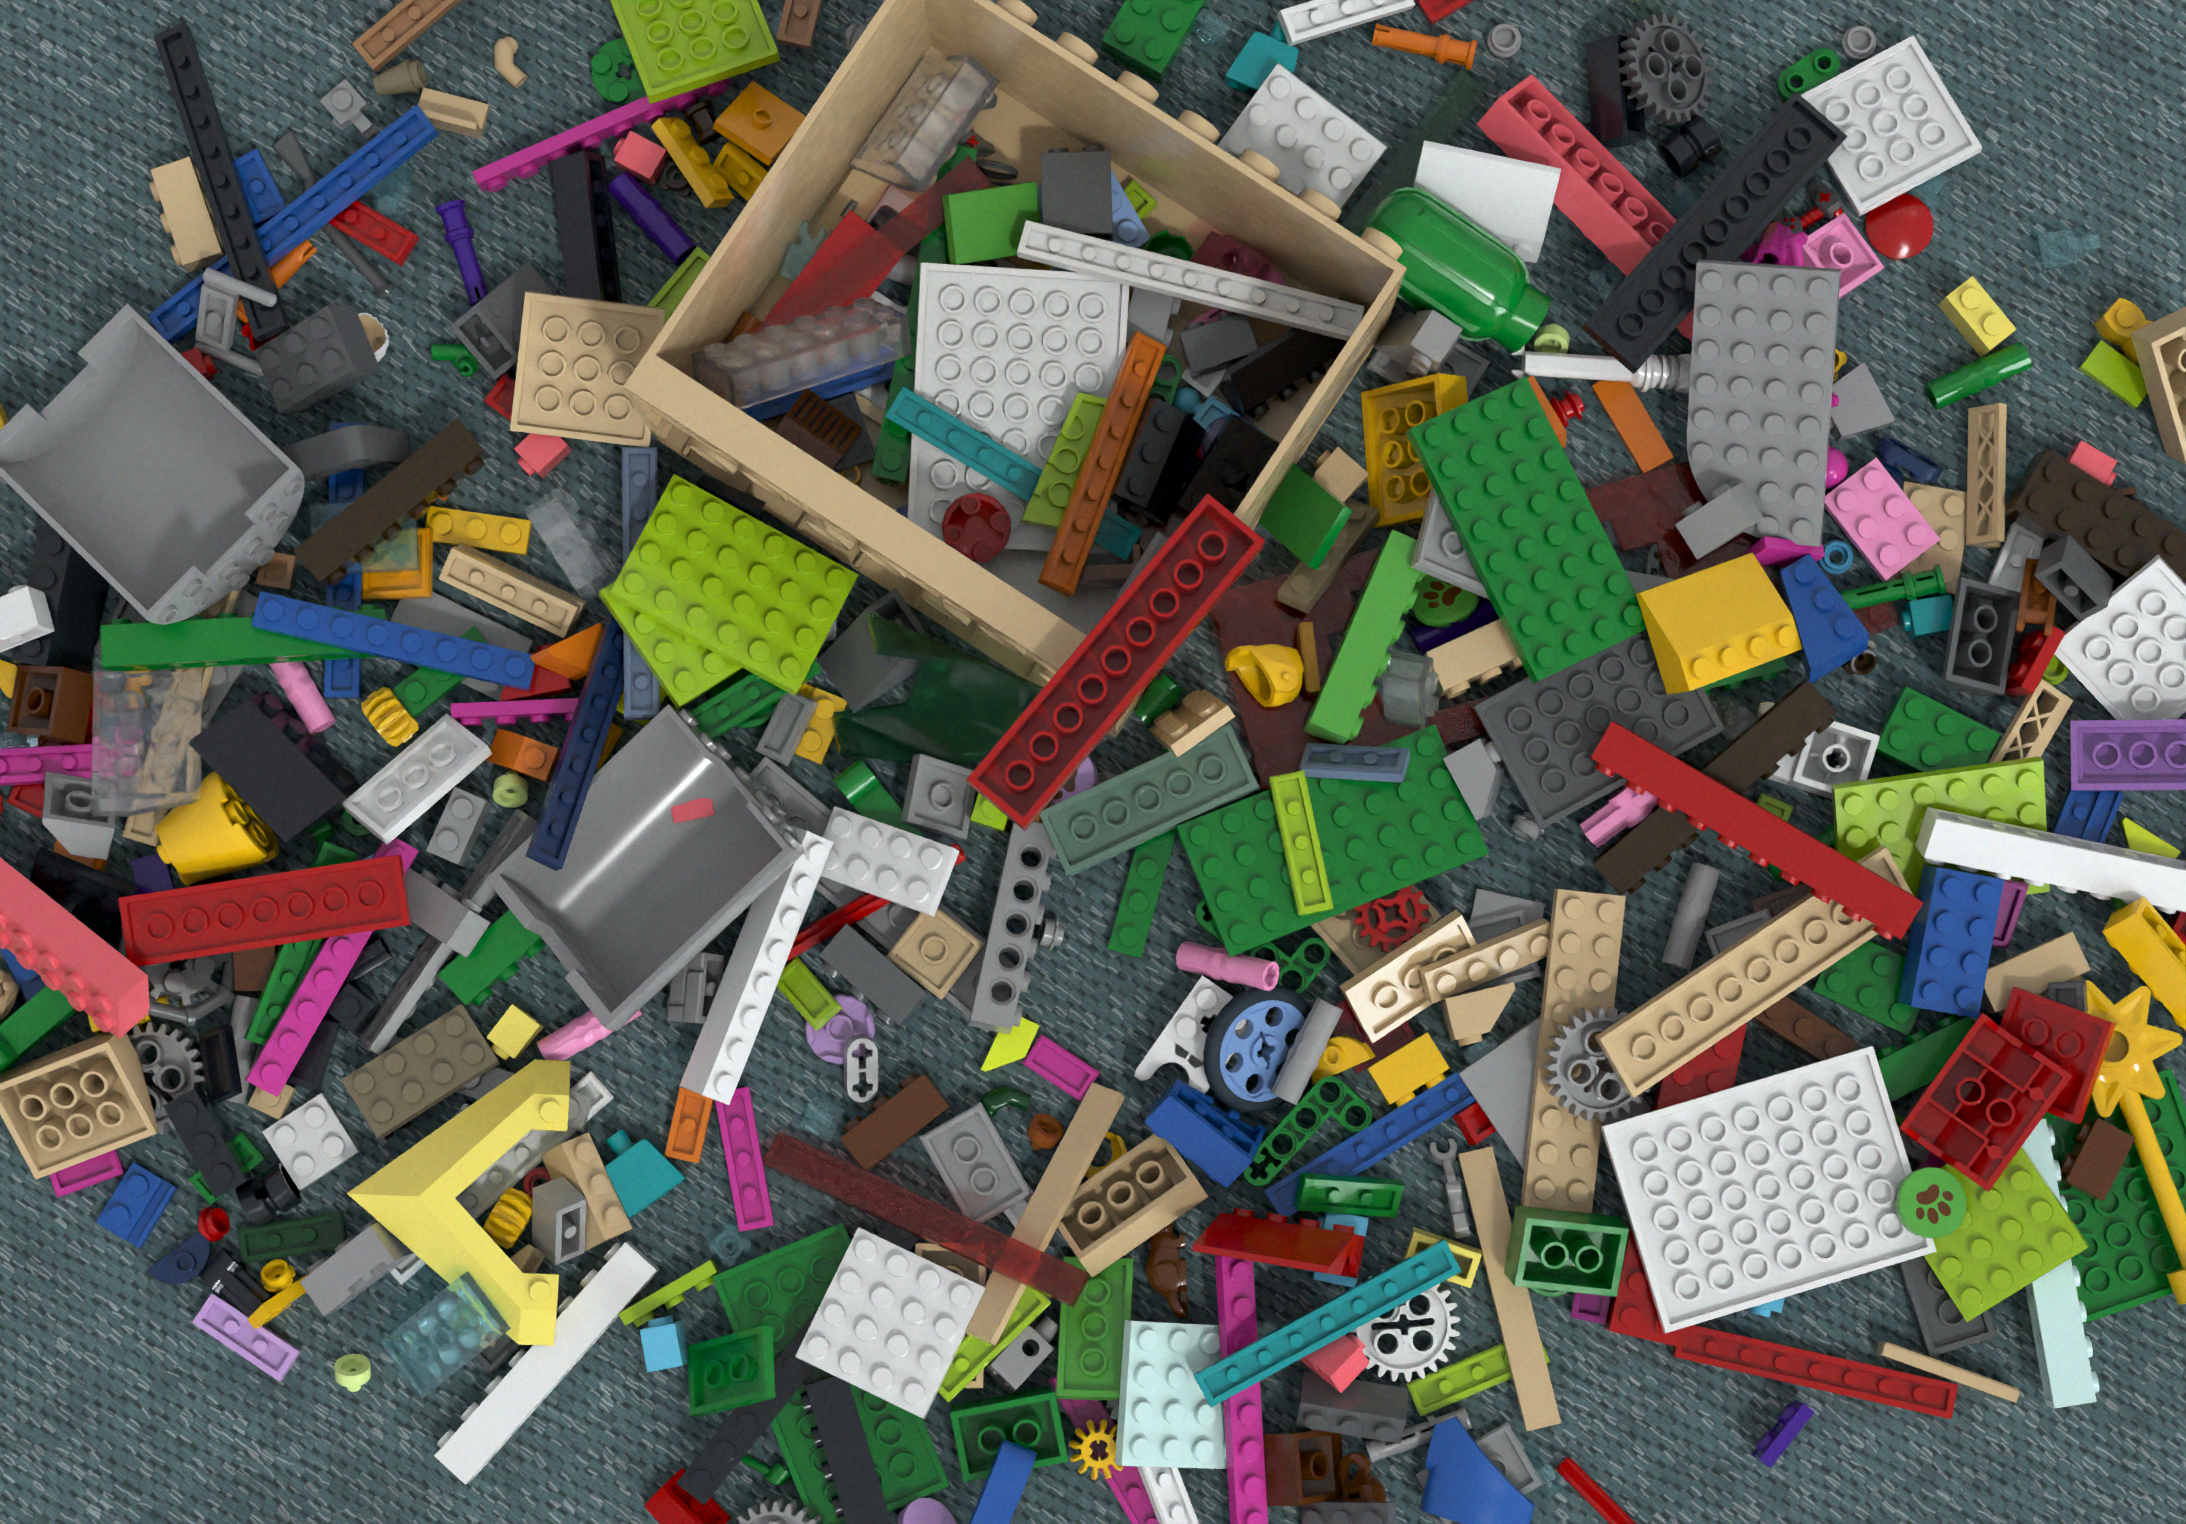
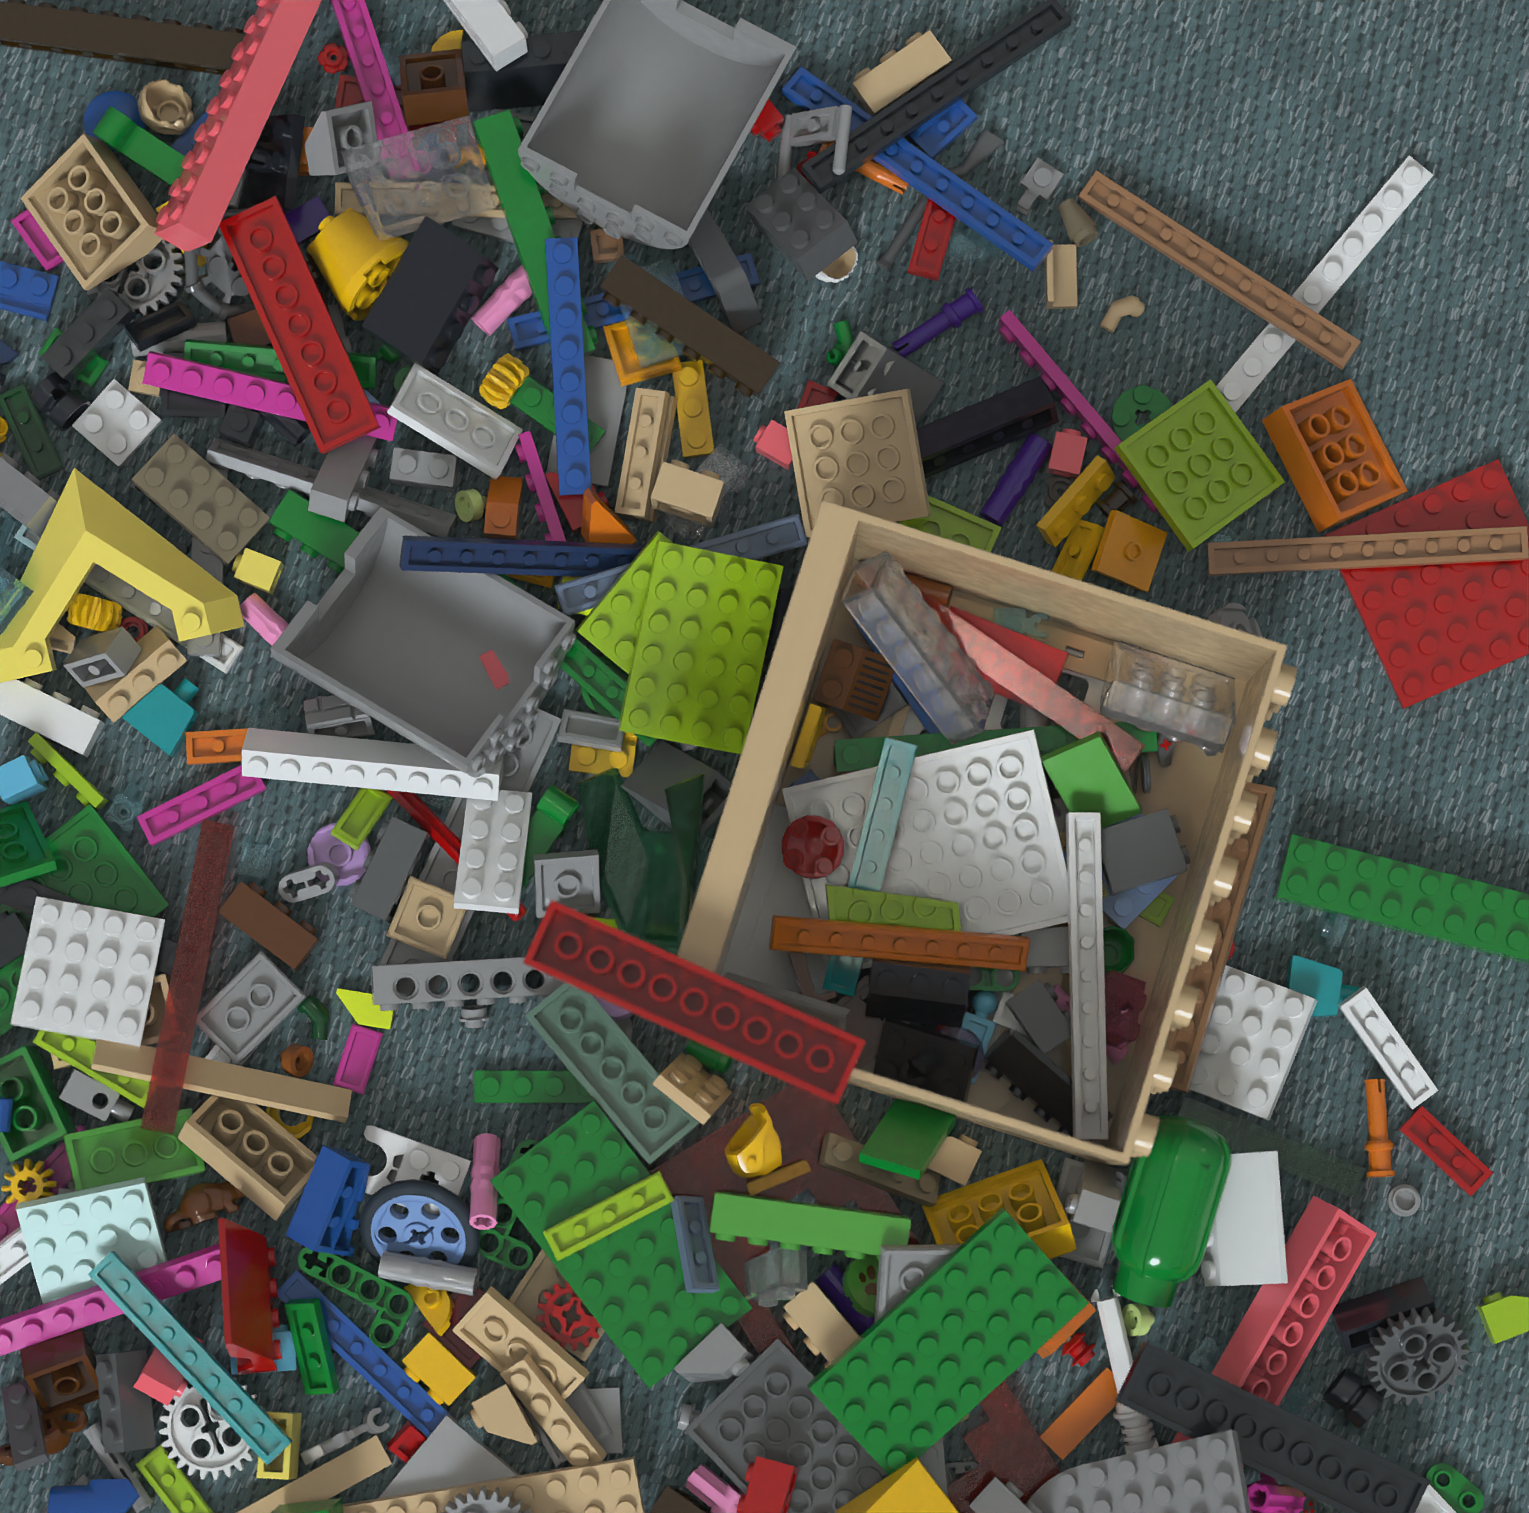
camera: 75 degrees right, 0 degrees up
(213, 1223) = (23, 360): red plate -> none
(567, 551) = (688, 493): none -> tan brick

